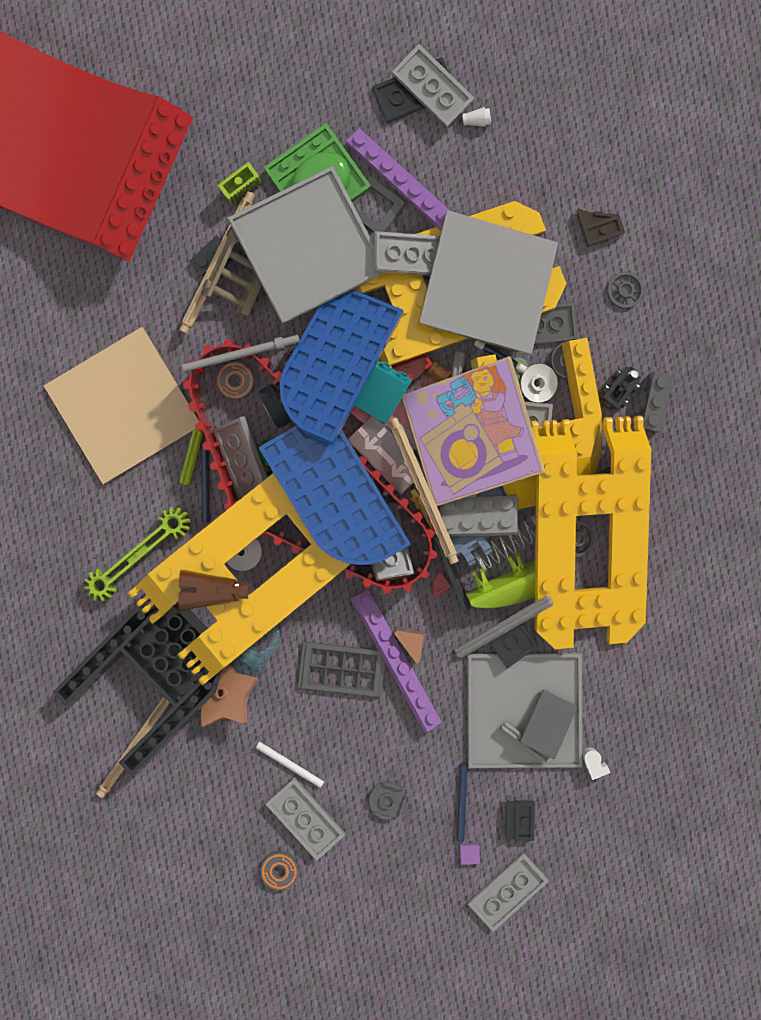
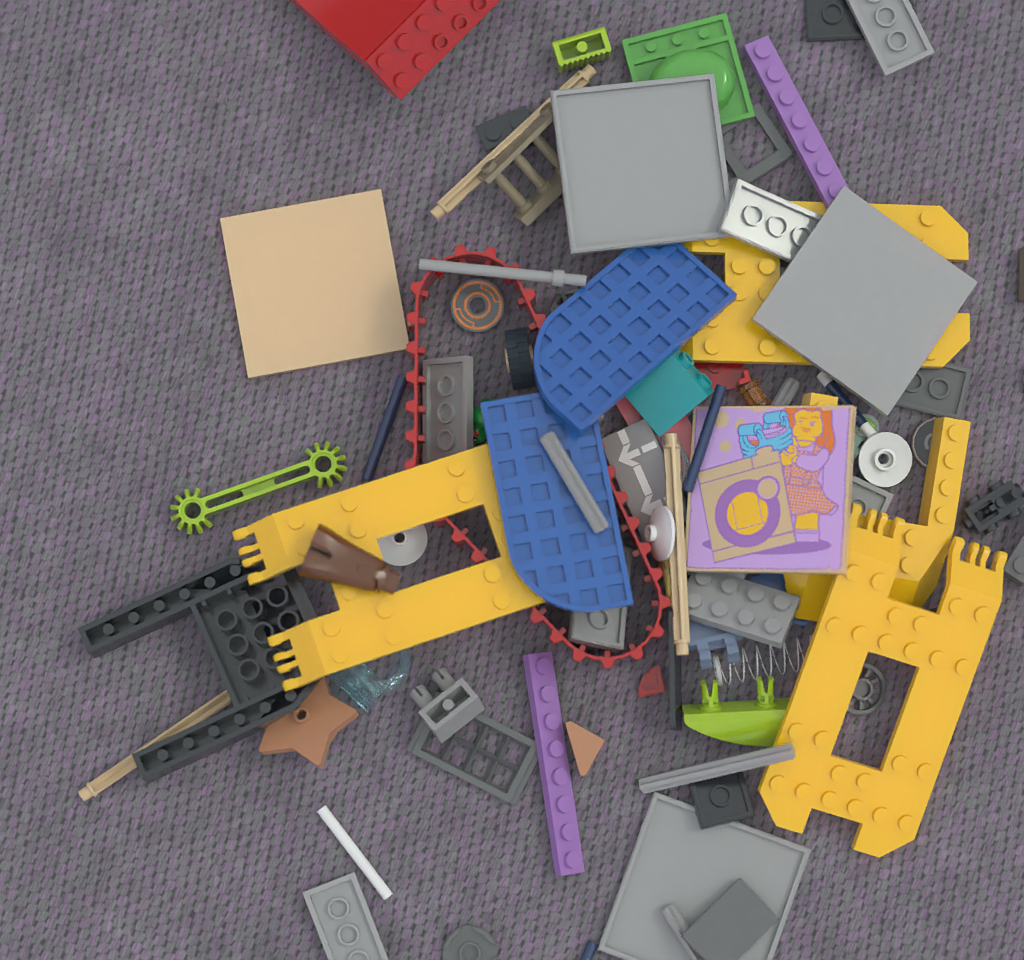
camera: 25 degrees right, 5 degrees down
(191, 457) = (380, 386): lime axle -> none
(316, 653) = (450, 709): none -> light grey brick
(341, 478) = (574, 482): none -> light grey axle
(410, 487) = (661, 533): none -> white dish
(416, 414) = (704, 438): none -> dark blue bar
(478, 117) = (932, 79): white cone -> none

